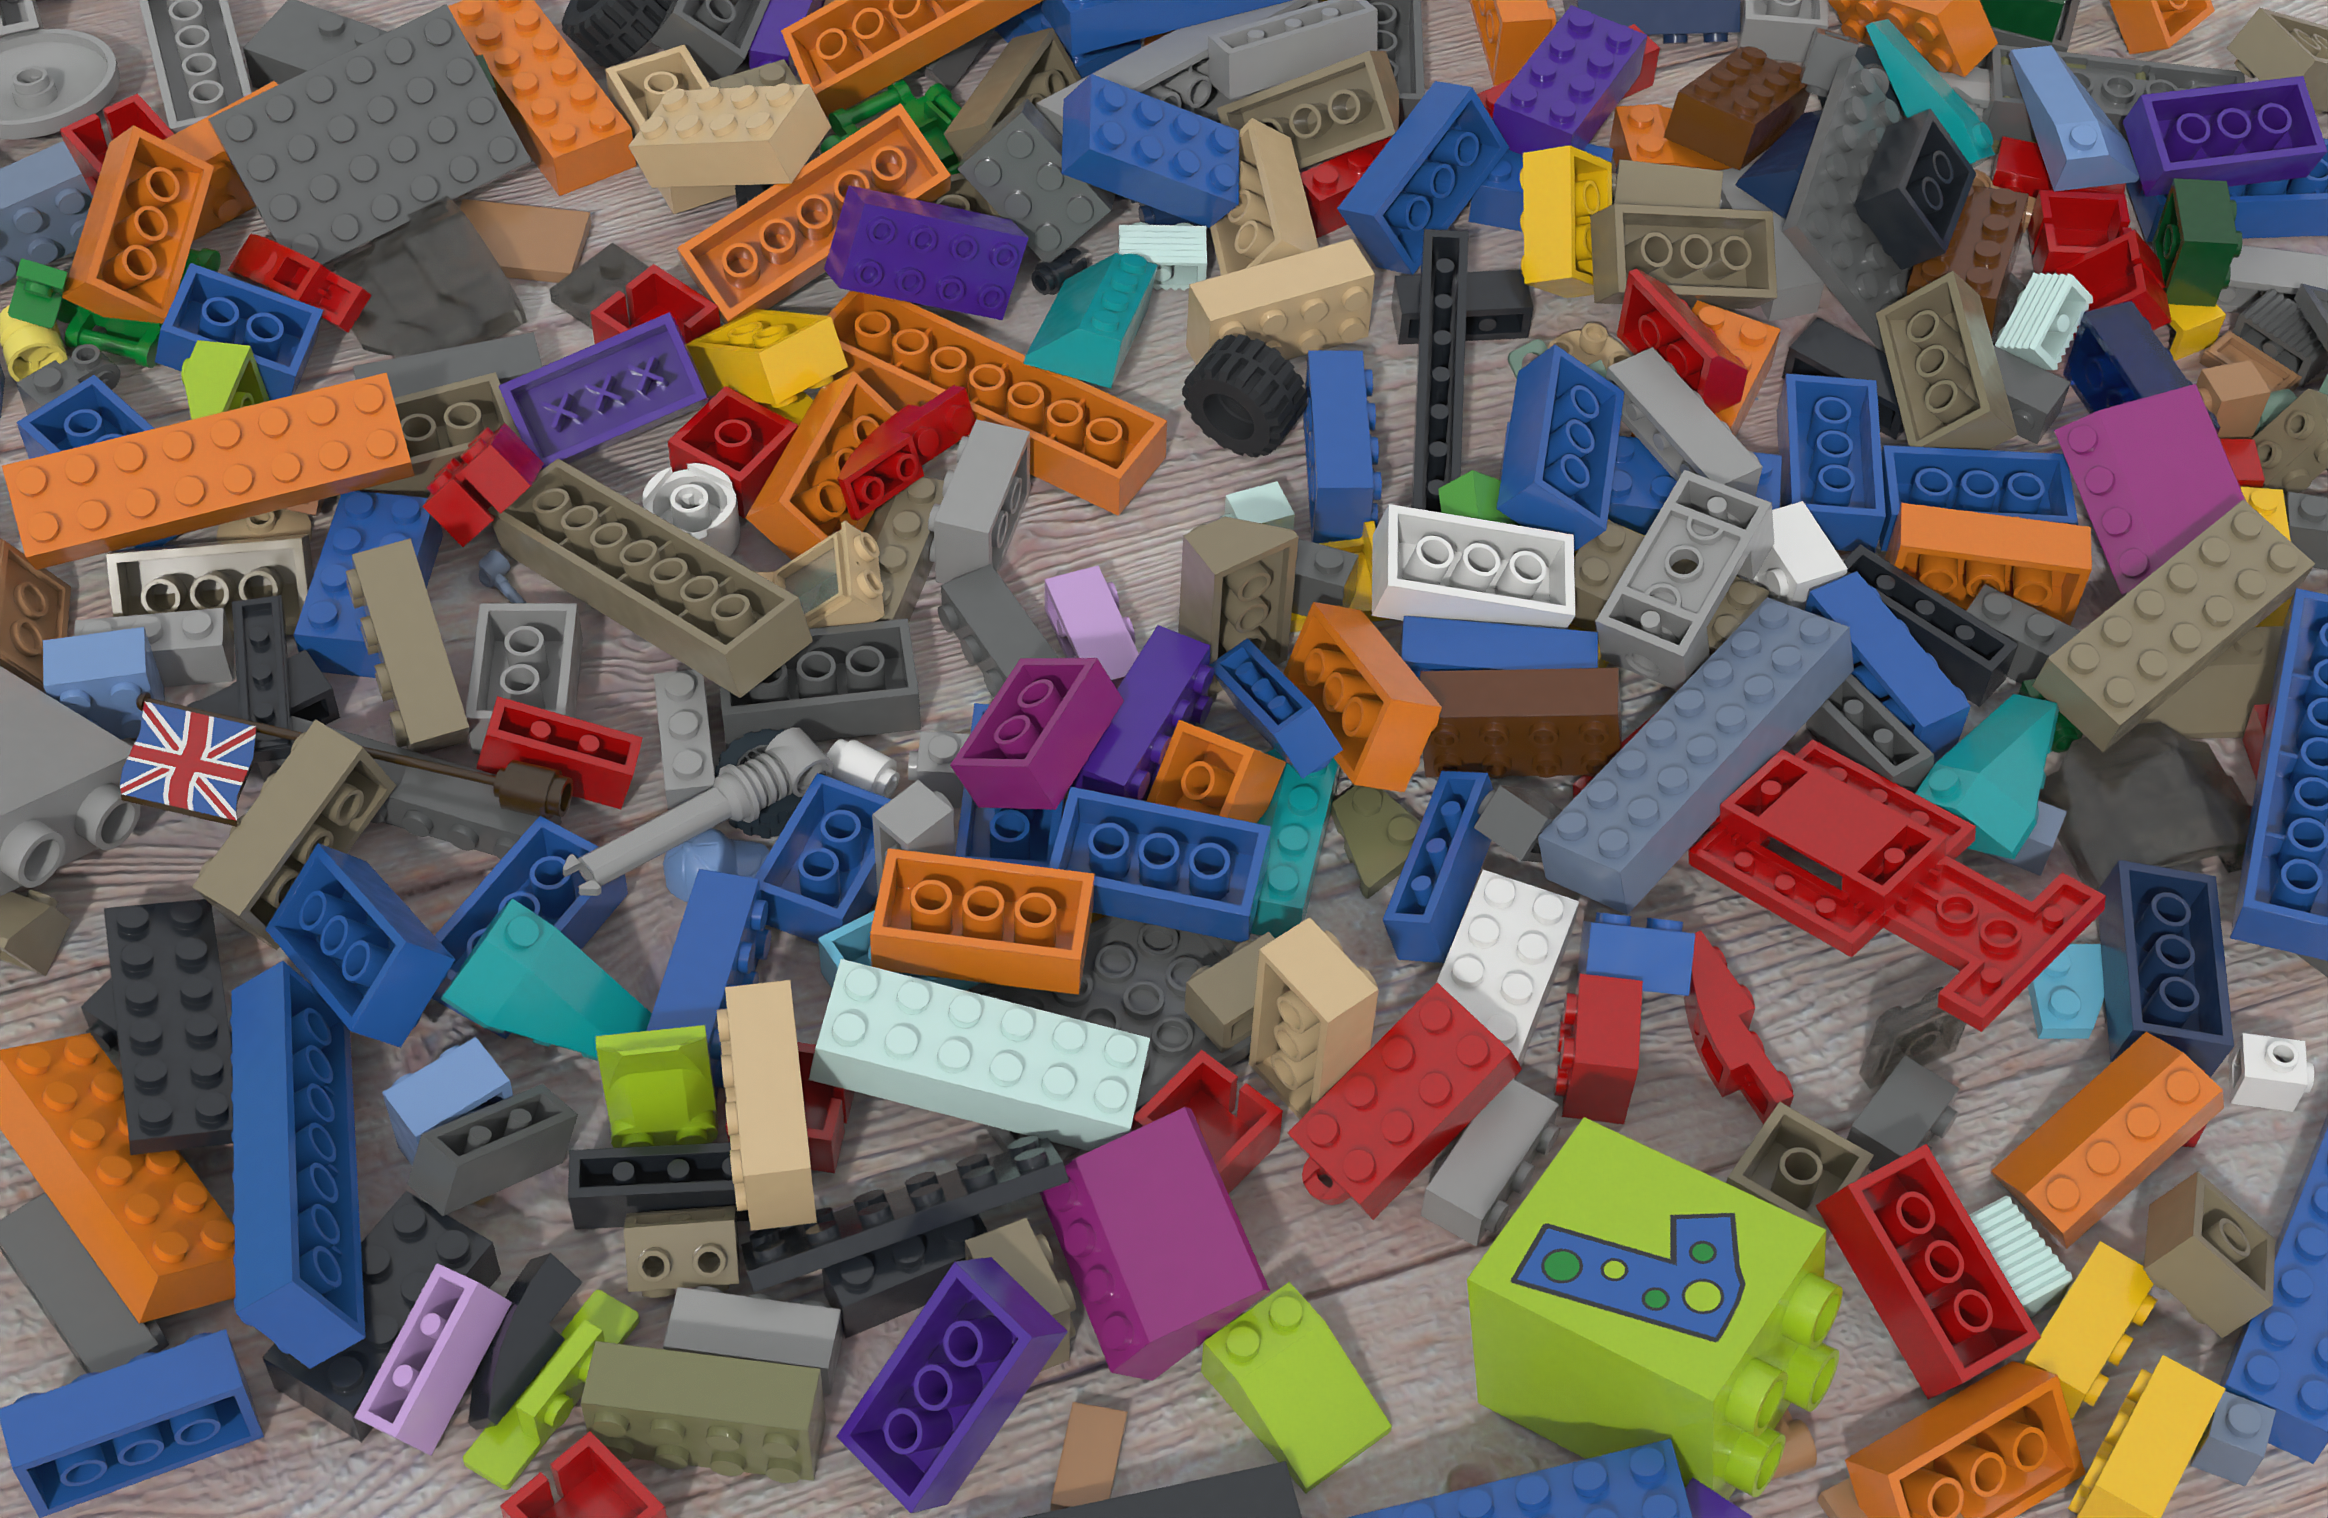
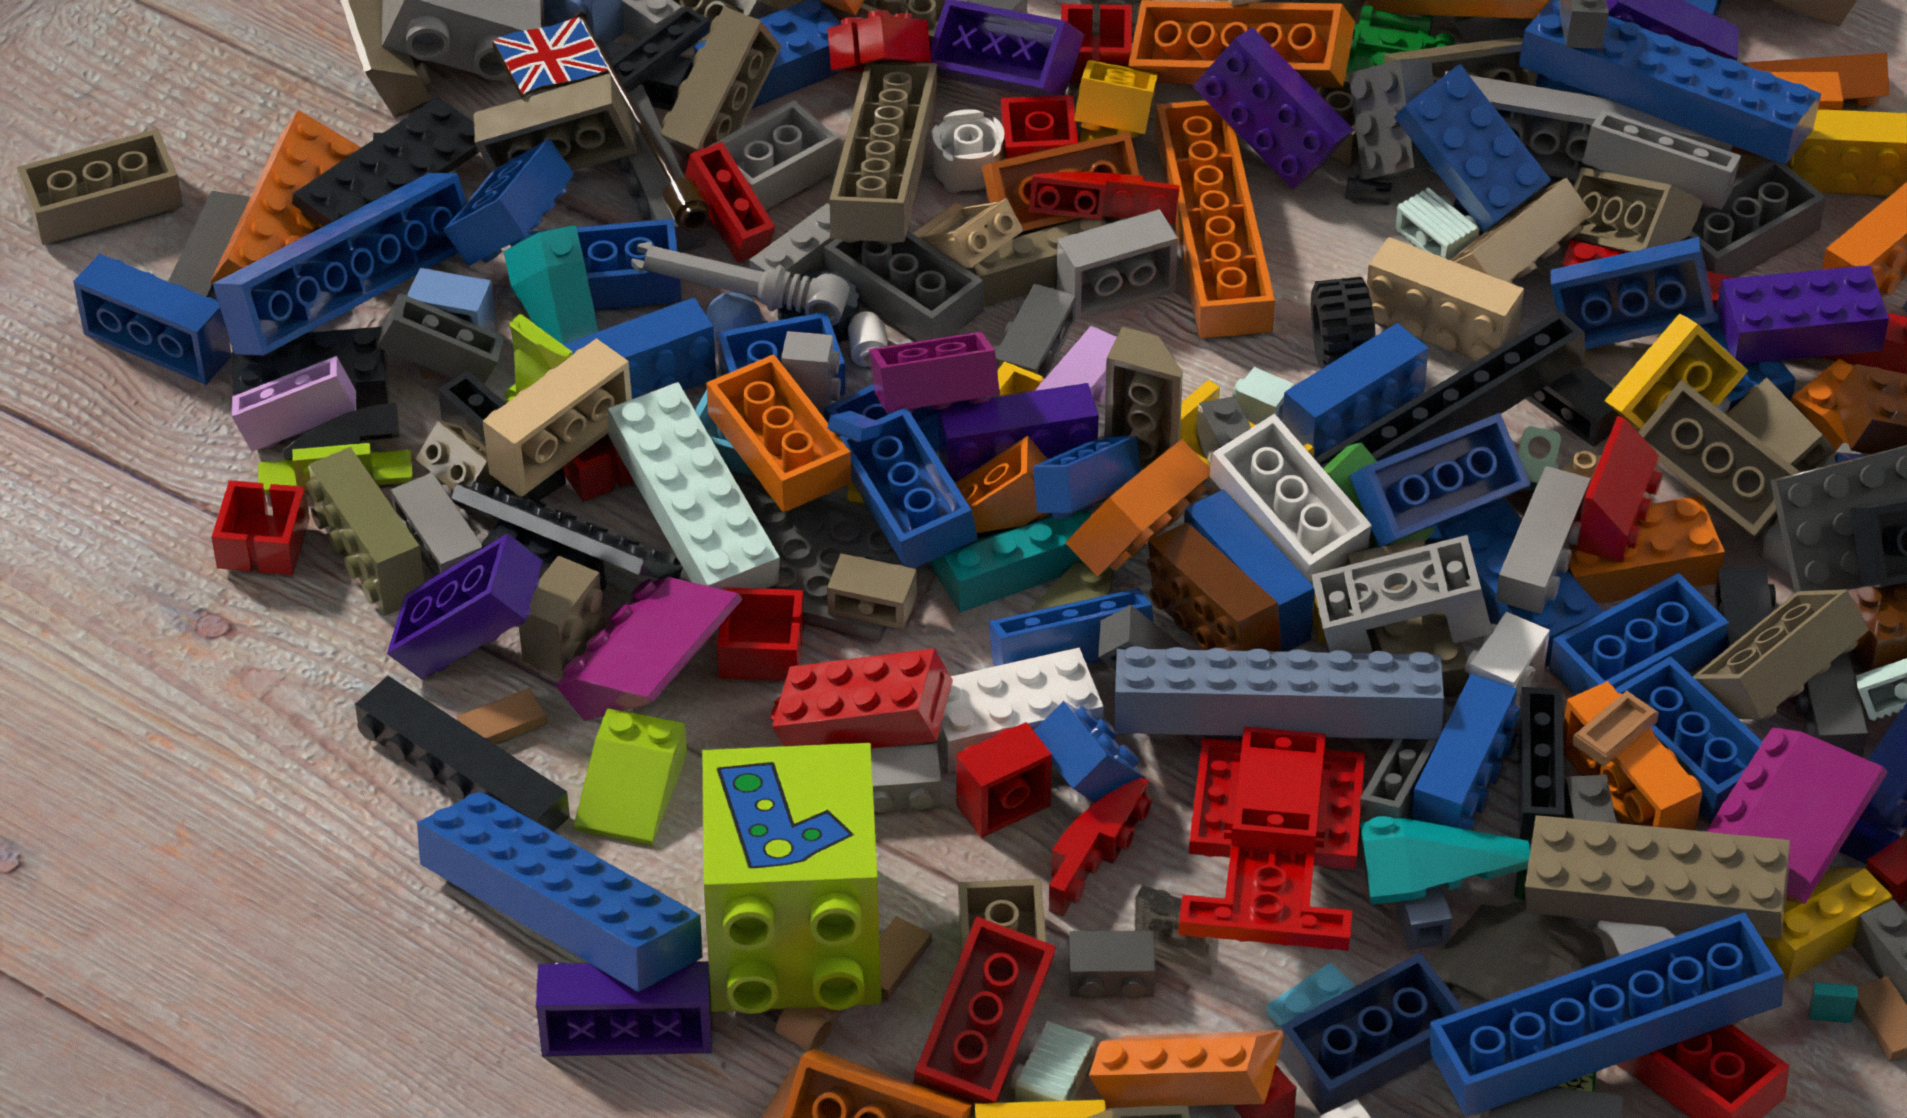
camera: 55 degrees right, 5 degrees down
(492, 572) = (844, 101): sand blue hand -> none
(1066, 846) = (854, 426): none -> blue tile
(1095, 320) = (1327, 226): teal slope -> none
(1309, 1015) = (858, 601): tan brick -> none
(1972, 534) = (1615, 728): none -> medium nougat tile

